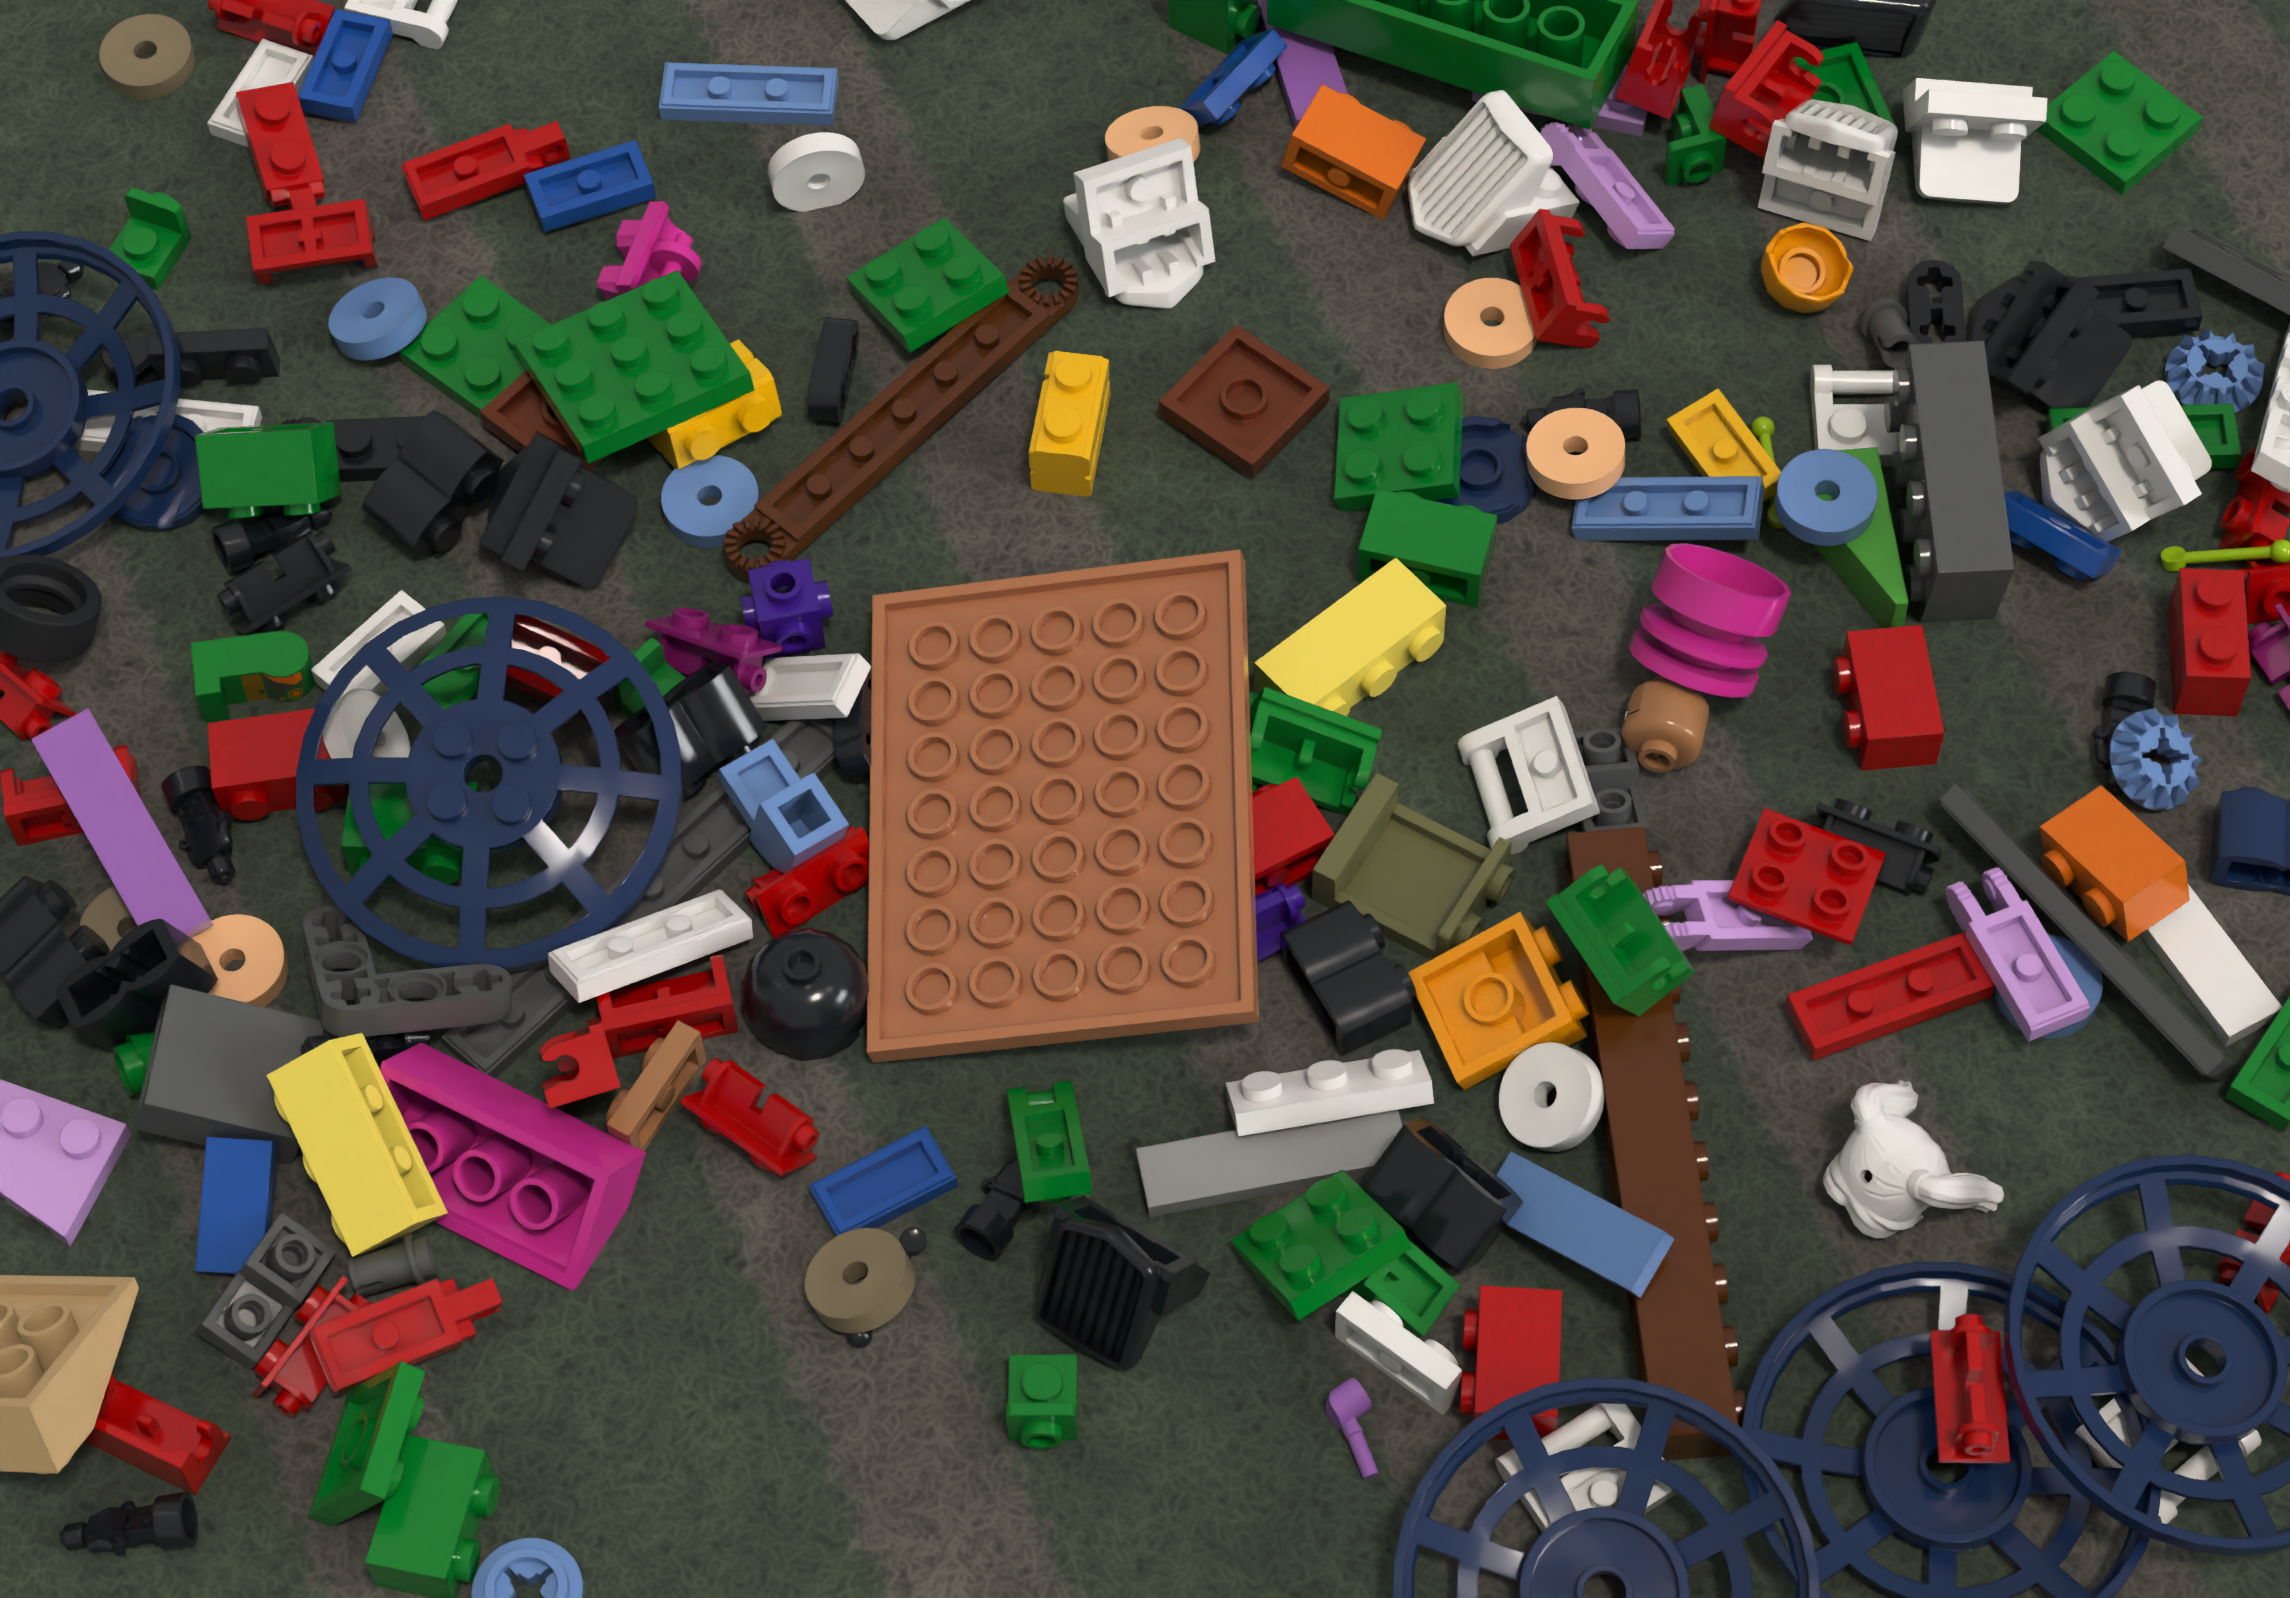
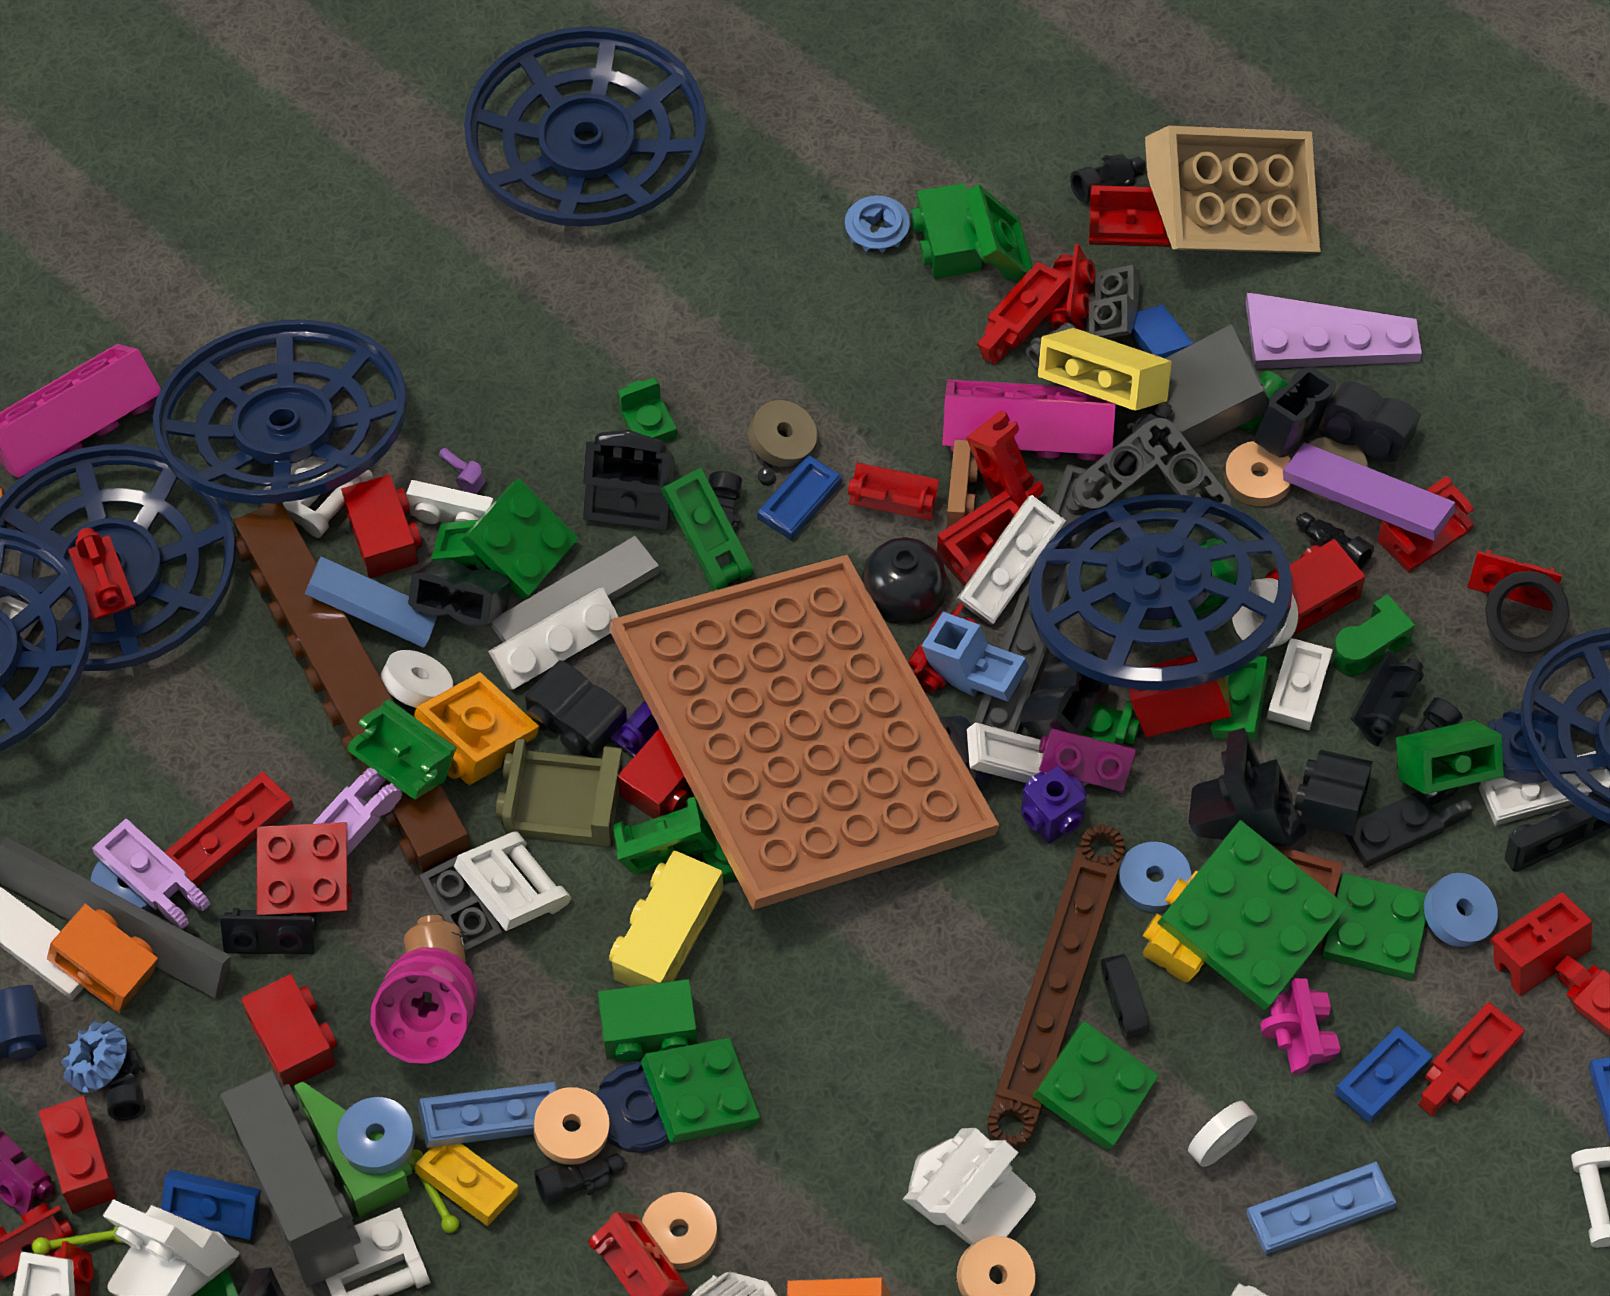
camera: 155 degrees right, 0 degrees up
(1069, 423) = (936, 1012): yellow brick -> none
(1244, 401) = (826, 1088): copper plate -> none
(1904, 1165) = (184, 711): white hair -> none

